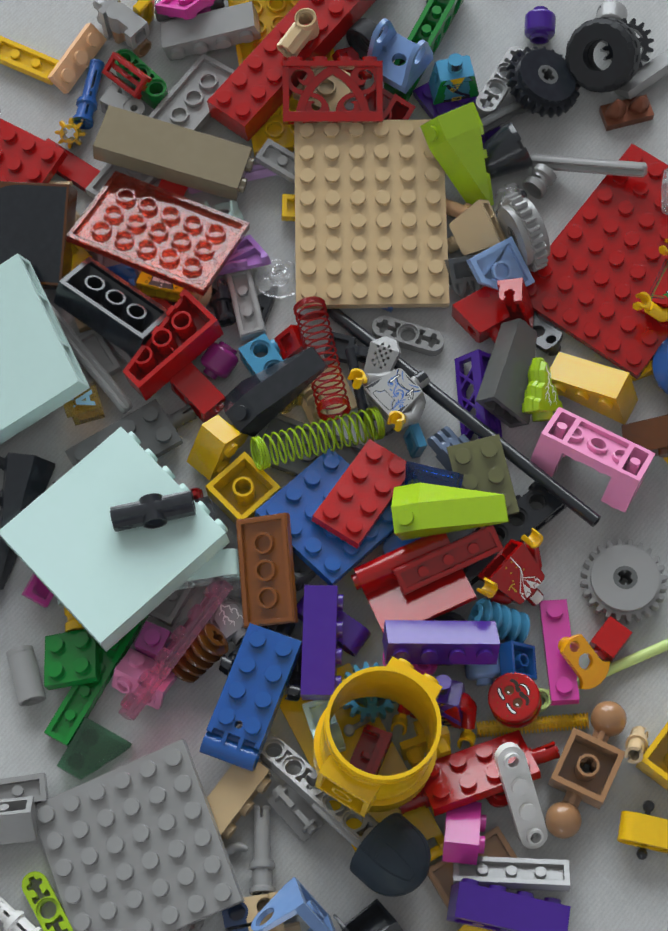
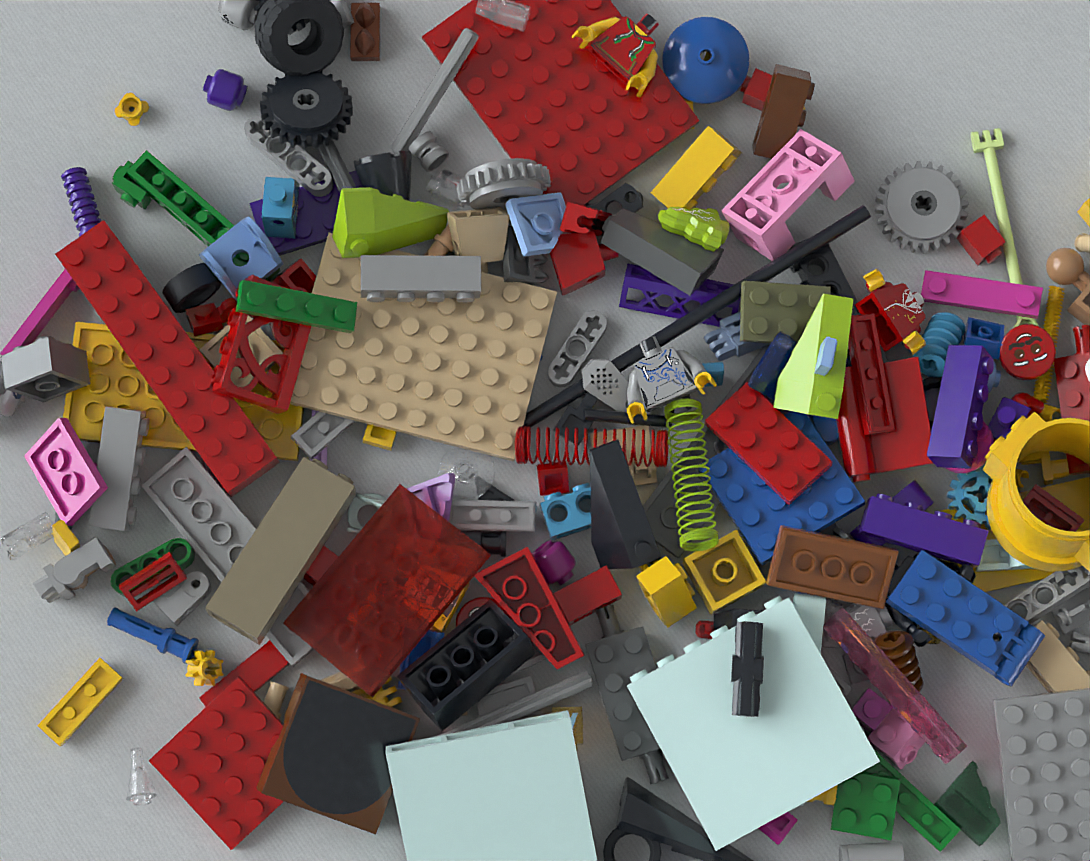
camera: 80 degrees left, 10 degrees up
(77, 58) = (98, 638): light nougat plate -> none
(299, 33) = (184, 363): tan piece -> none
(367, 101) = (296, 306): none -> green plate
(423, 189) = (420, 277): none -> light grey brick
(443, 501) = (826, 356): none -> light blue tile
(596, 670) = (992, 279): light orange piece -> none

